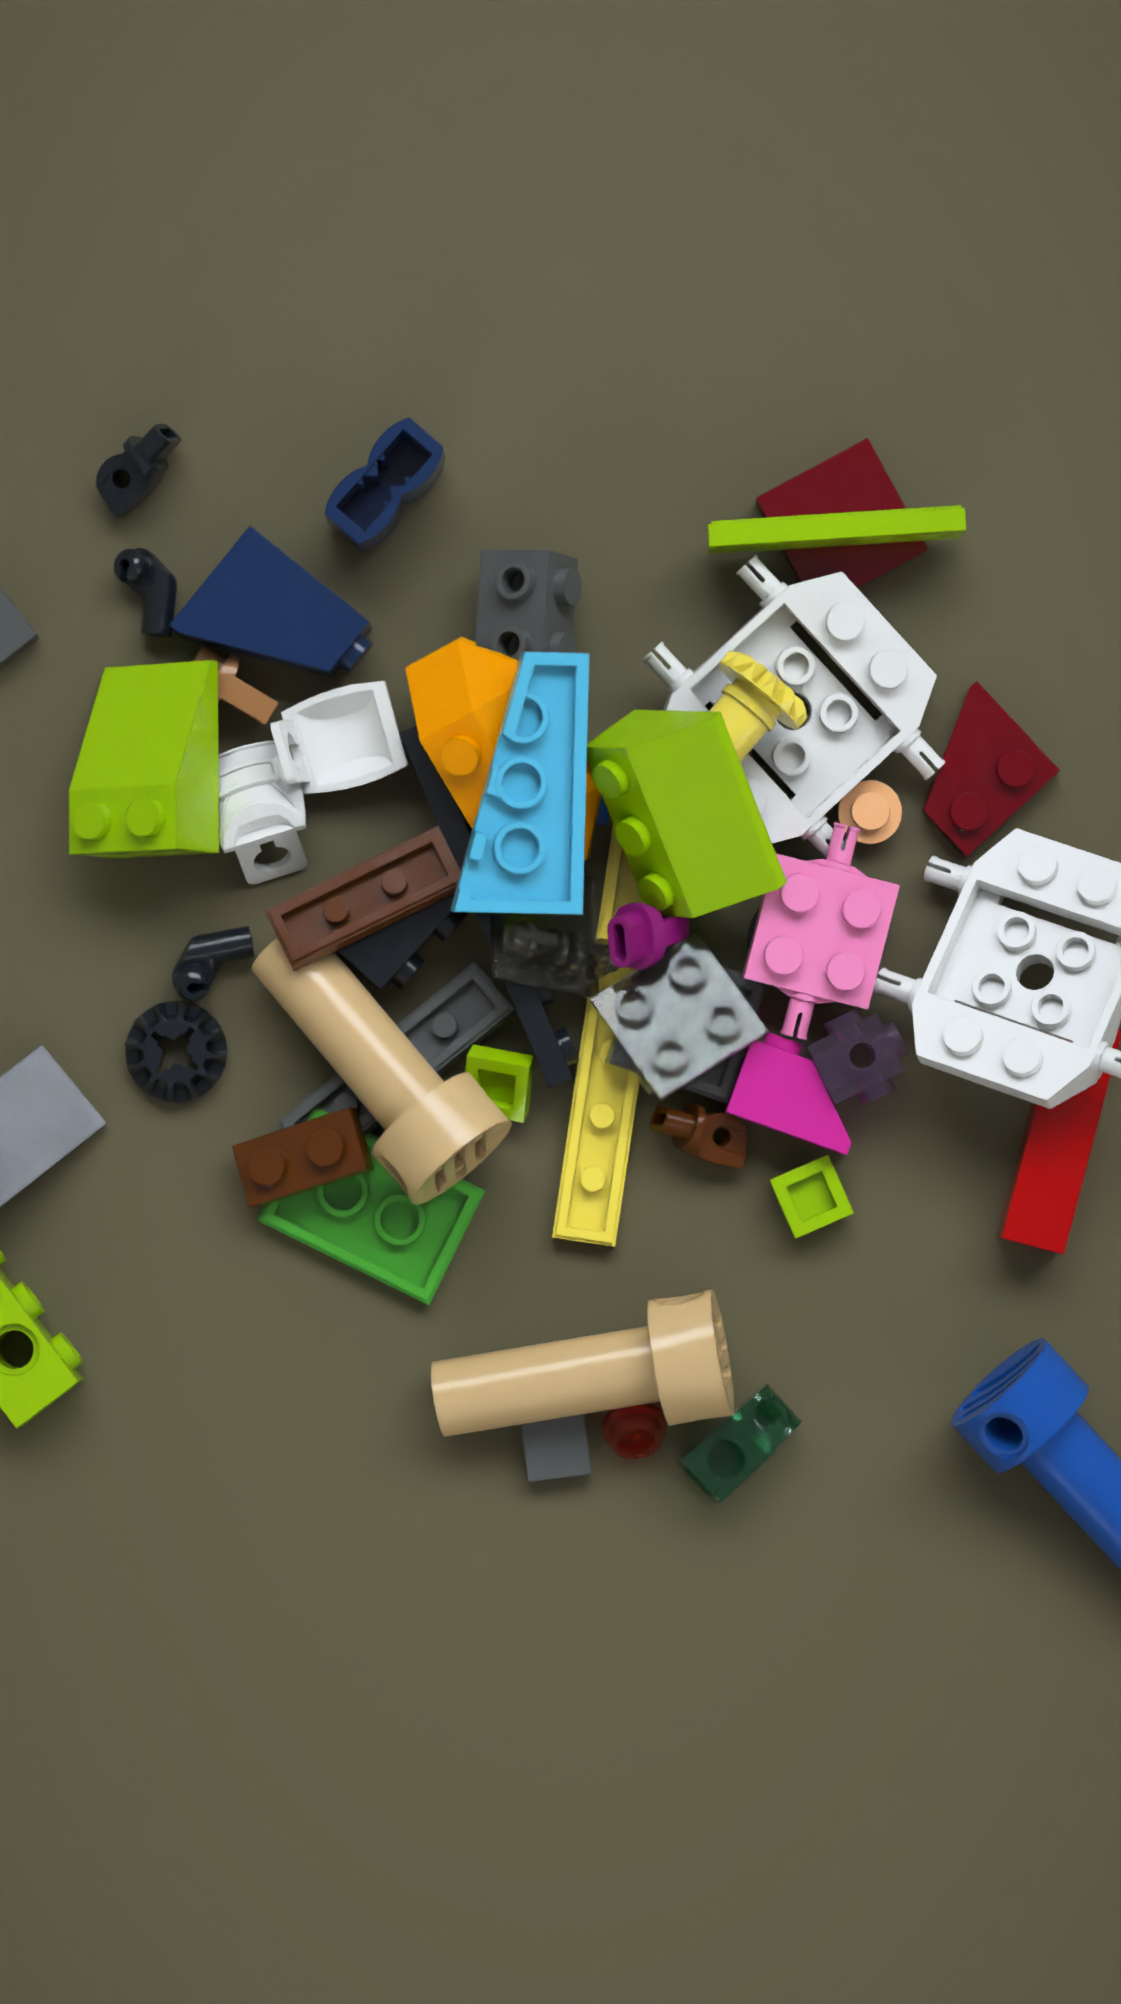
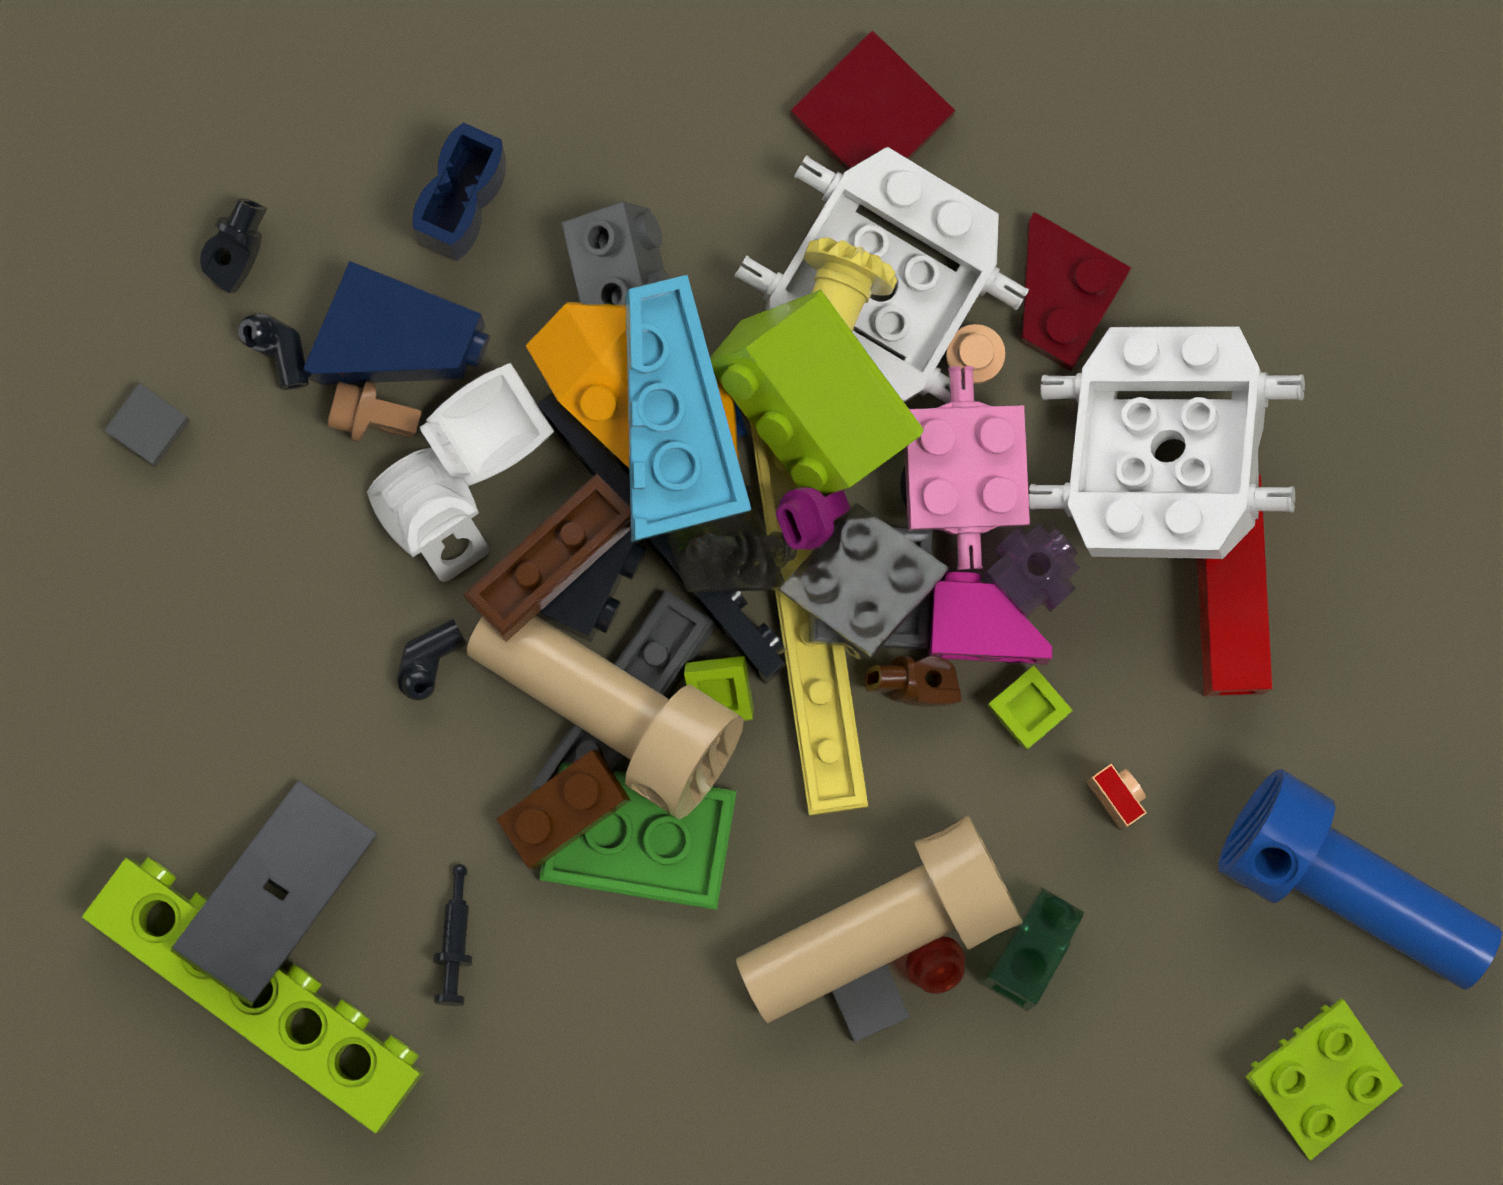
camera: 25 degrees left, 5 degrees down
(149, 764) = (322, 500): lime slope -> none
(152, 1256) = (454, 942): none -> black piece
(206, 1047) = (431, 776): black gear -> none
(835, 529) = (870, 113): lime tile -> none
(875, 1313) = (1119, 795): none -> plate
(993, 1664) = (1324, 1078): none -> lime hinge

